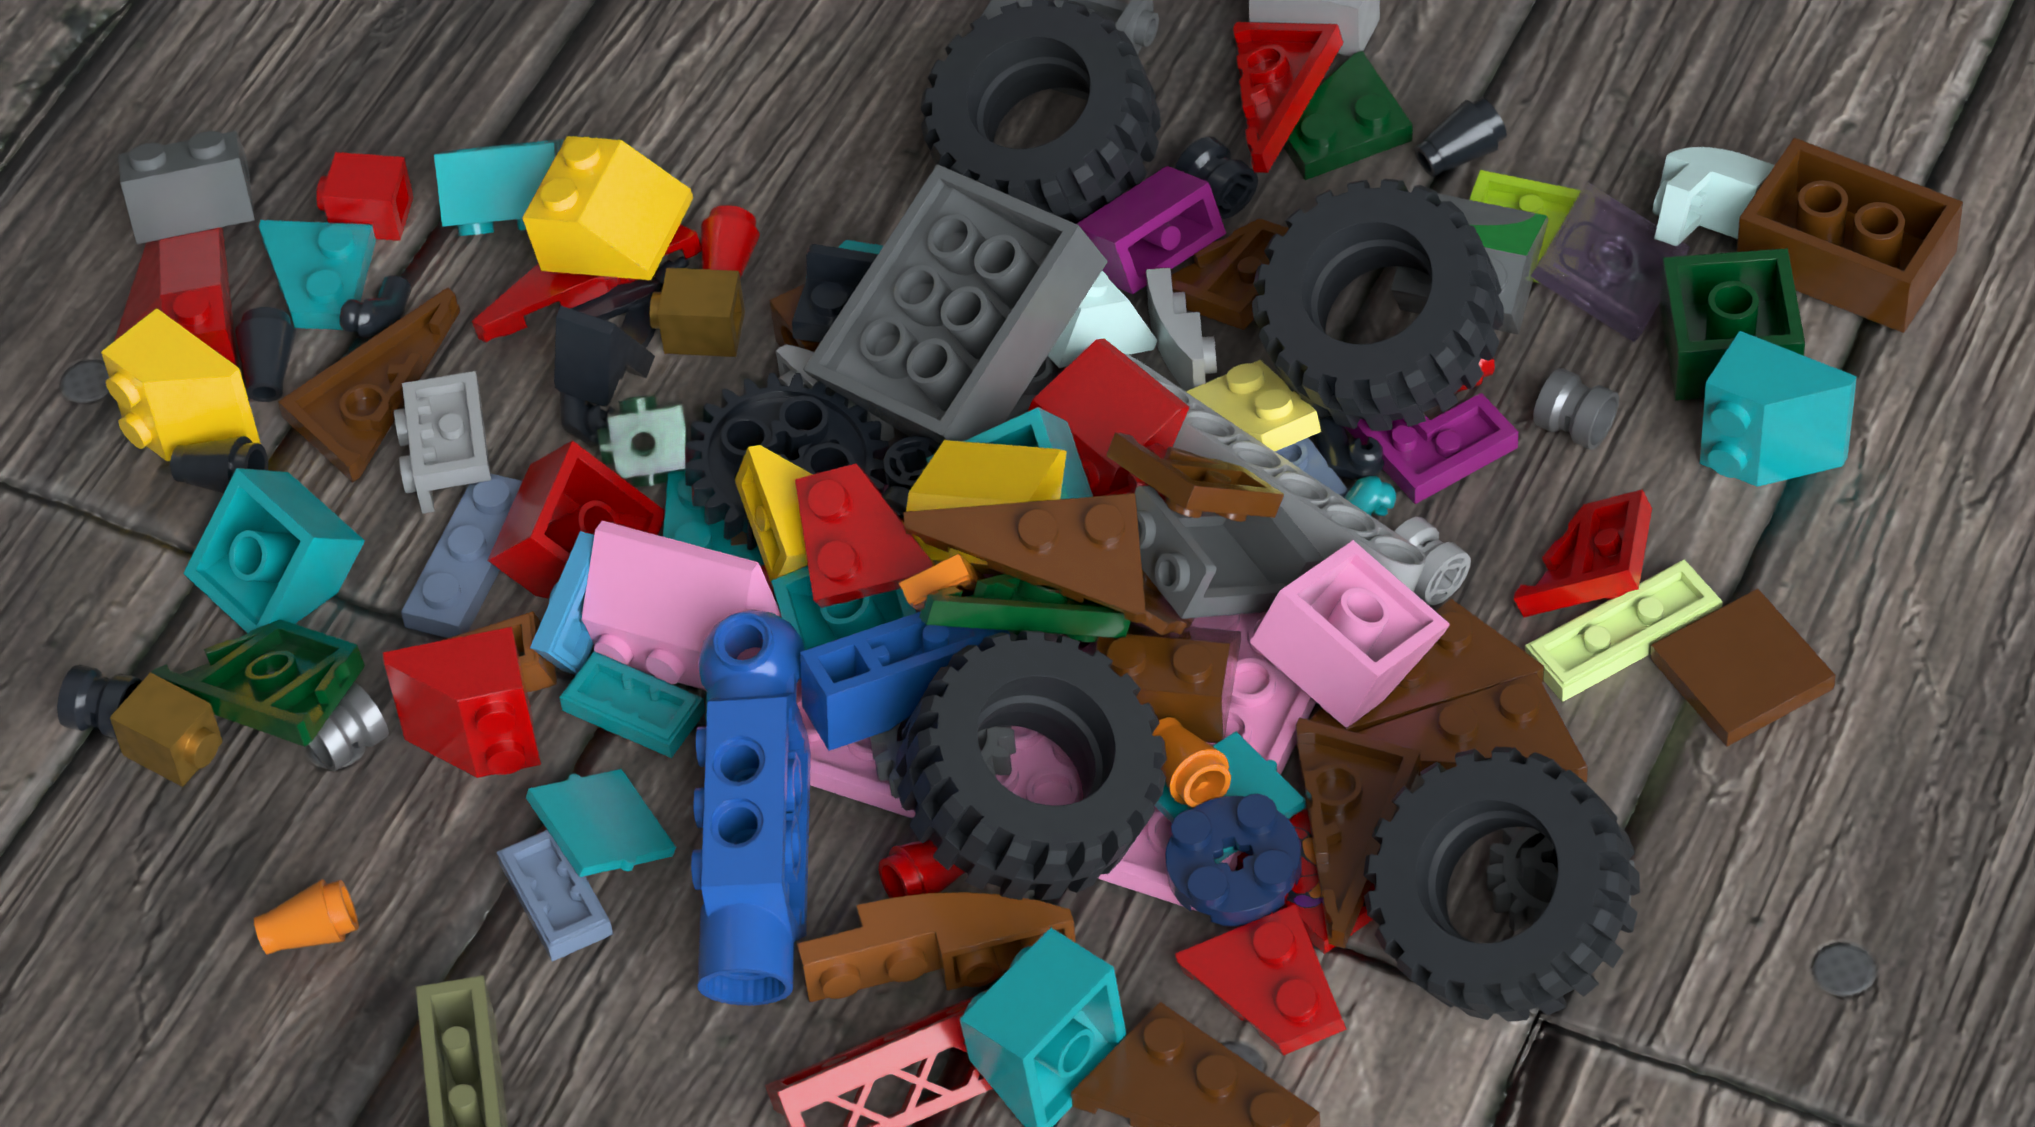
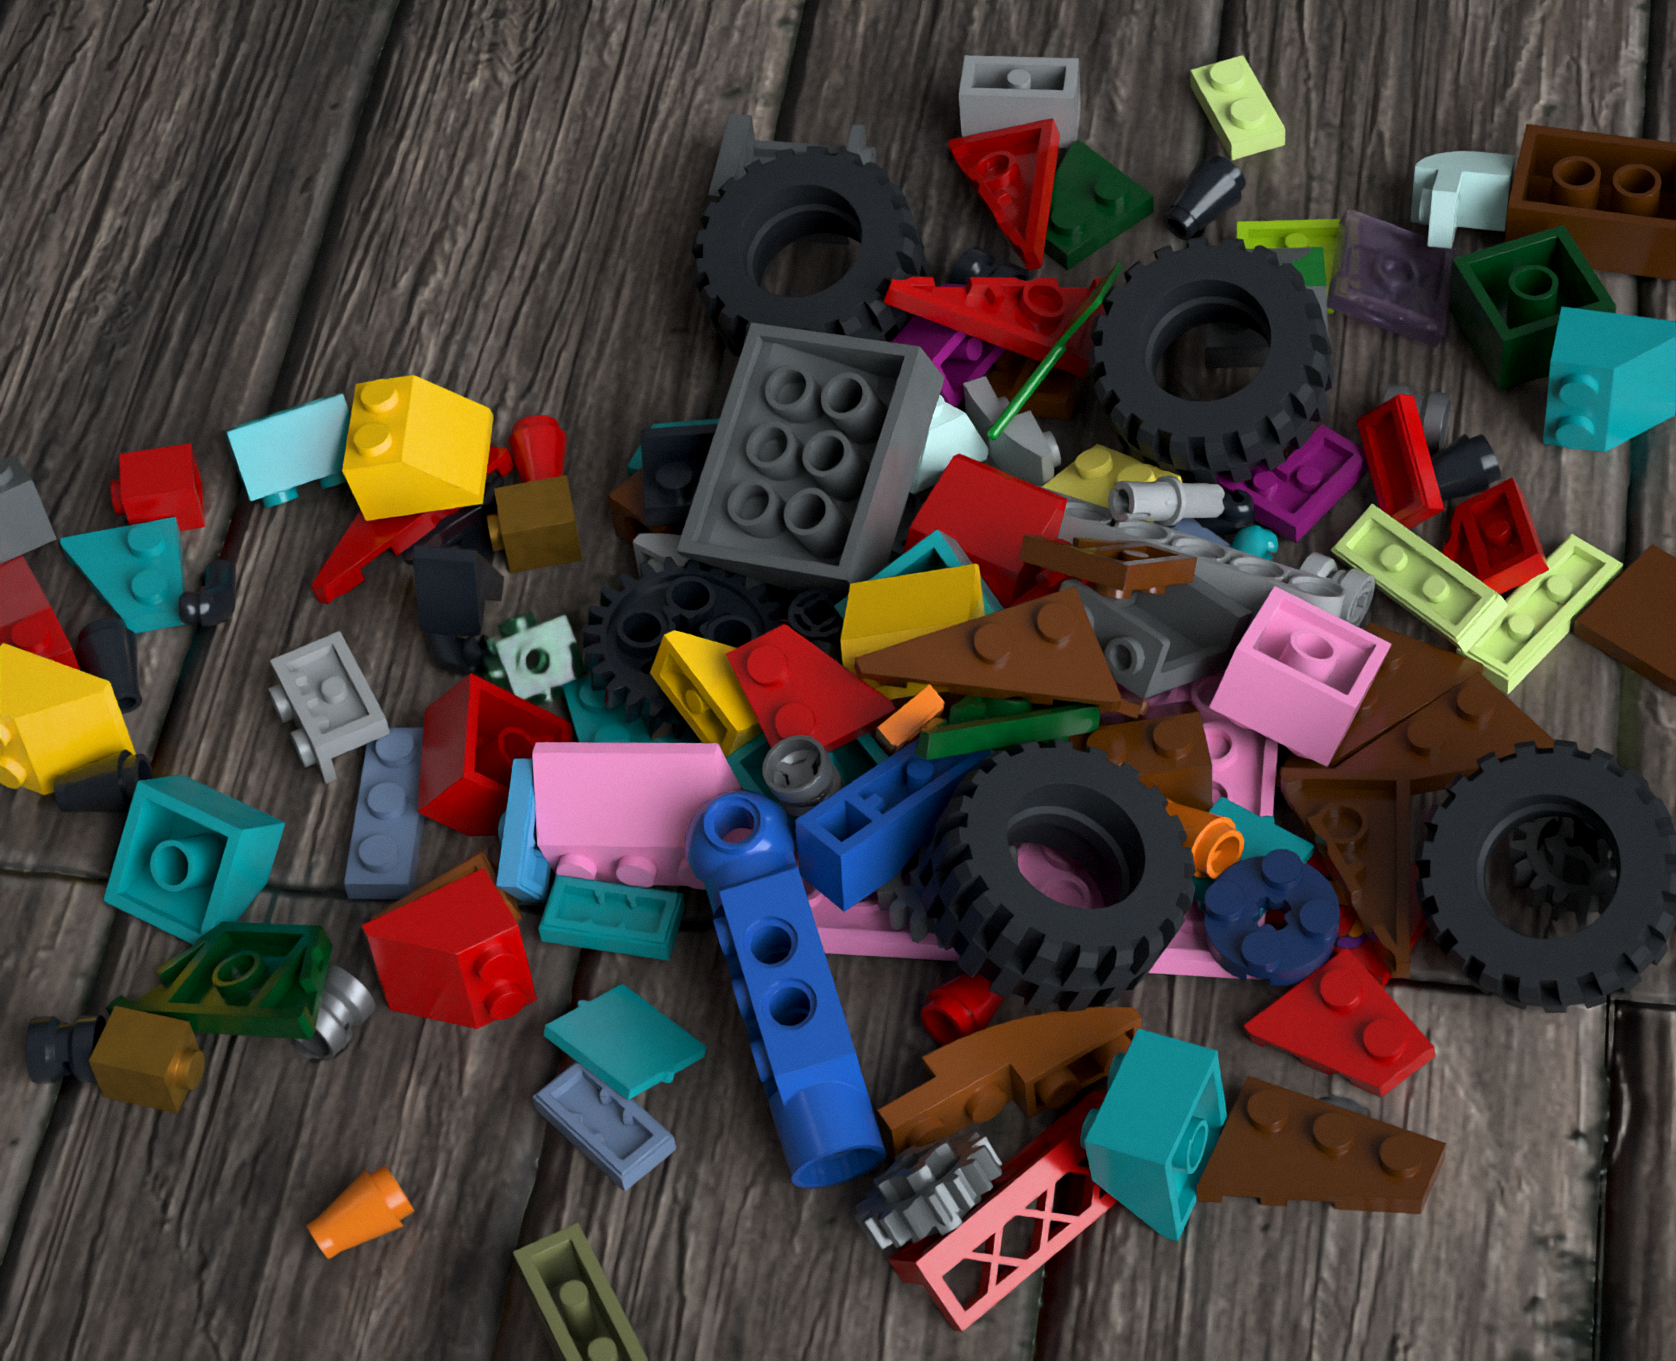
camera: 15 degrees left, 0 degrees up
(354, 400) = (224, 684): reddish brown wing -> none
(815, 1029) = (928, 1190): none -> dark grey gear
(824, 609) = (800, 774): none -> flat silver wheel
(1206, 209) = (1004, 312): none -> red wing
(1226, 268) = (1078, 317): none -> green piece
(1289, 432) = (1165, 501): none -> light grey axle
(1513, 567) = (1420, 578): none -> yellowish green tile
(1534, 53) = (1237, 107): none -> yellowish green plate
(1537, 450) = (1400, 461): none -> red tile
(1592, 470) = (1465, 467): none -> black cone

